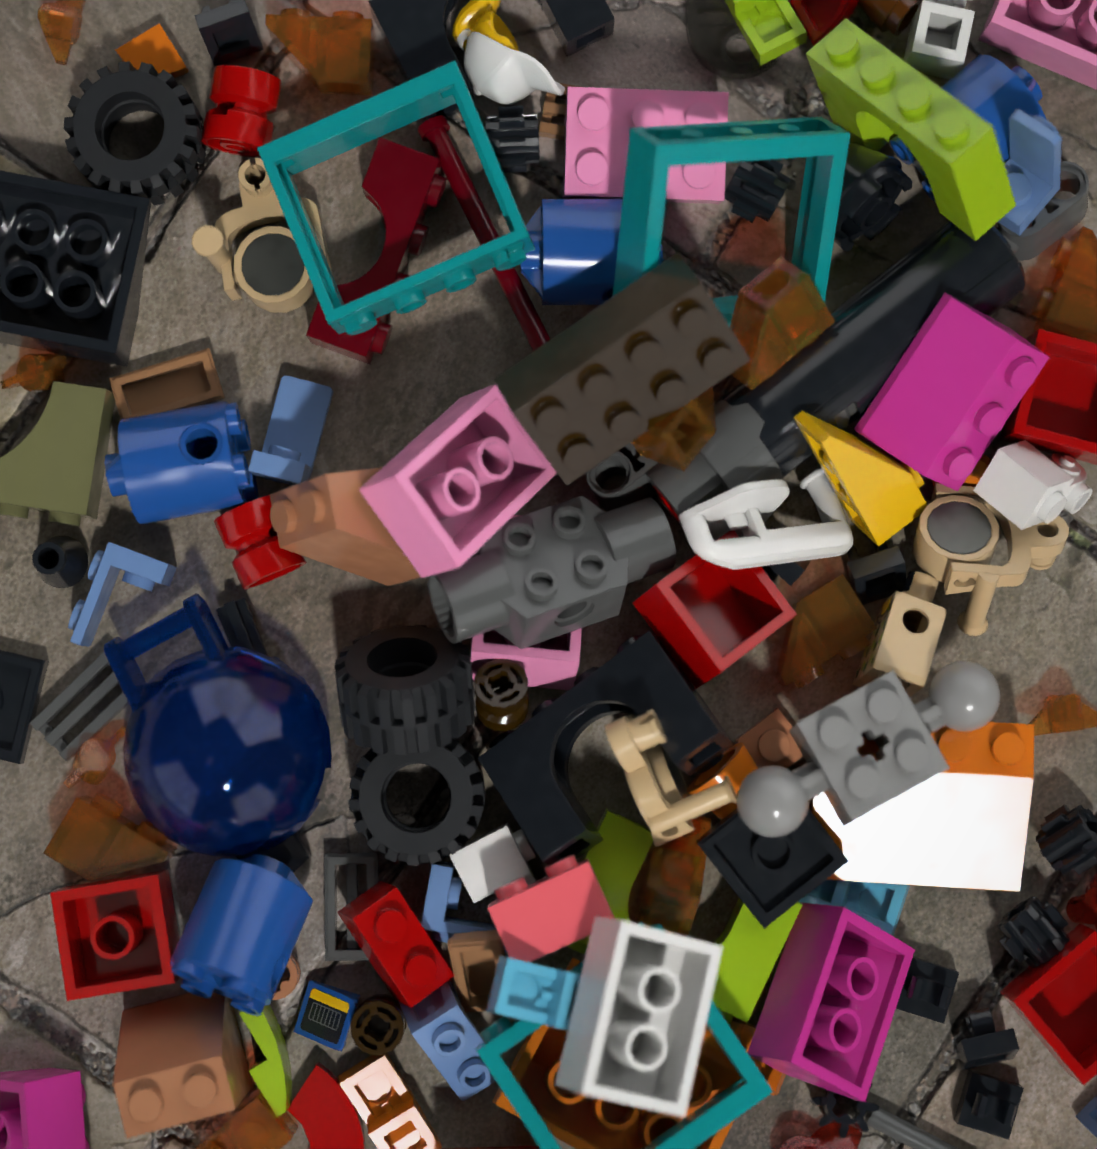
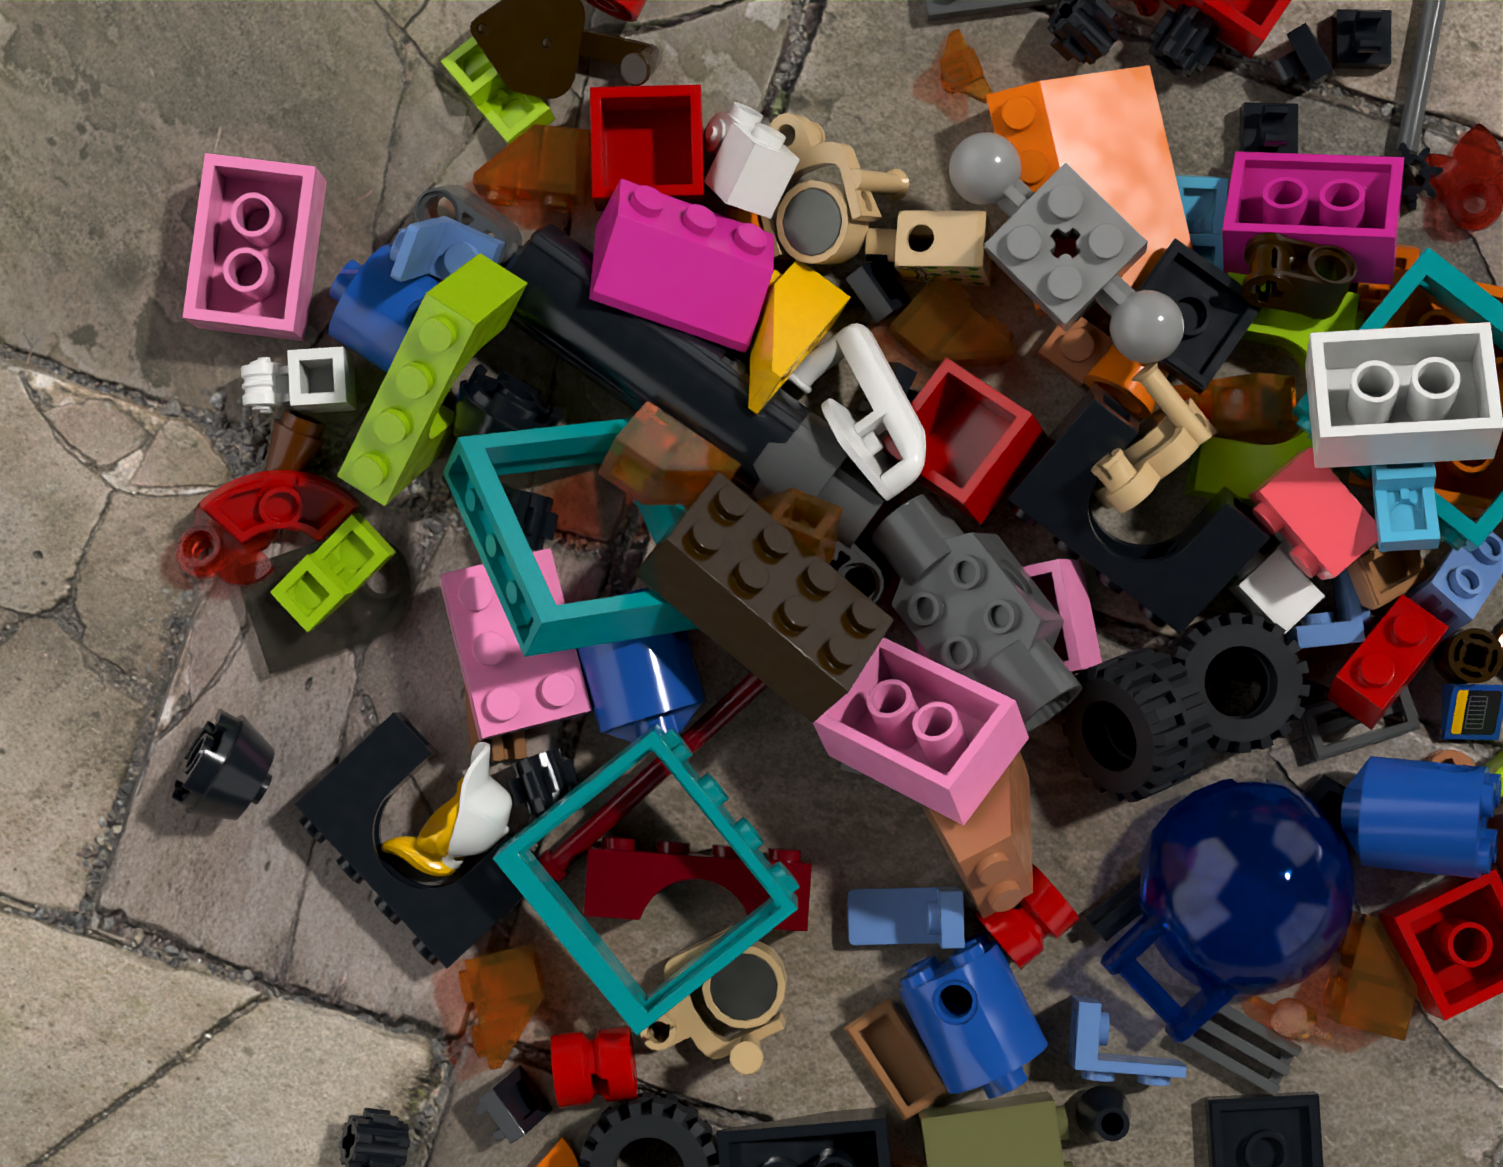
camera: 105 degrees left, 0 degrees up
(505, 706) = (1124, 623): dark brown wheel -> none
(777, 965) = (1300, 279): none -> dark brown piece

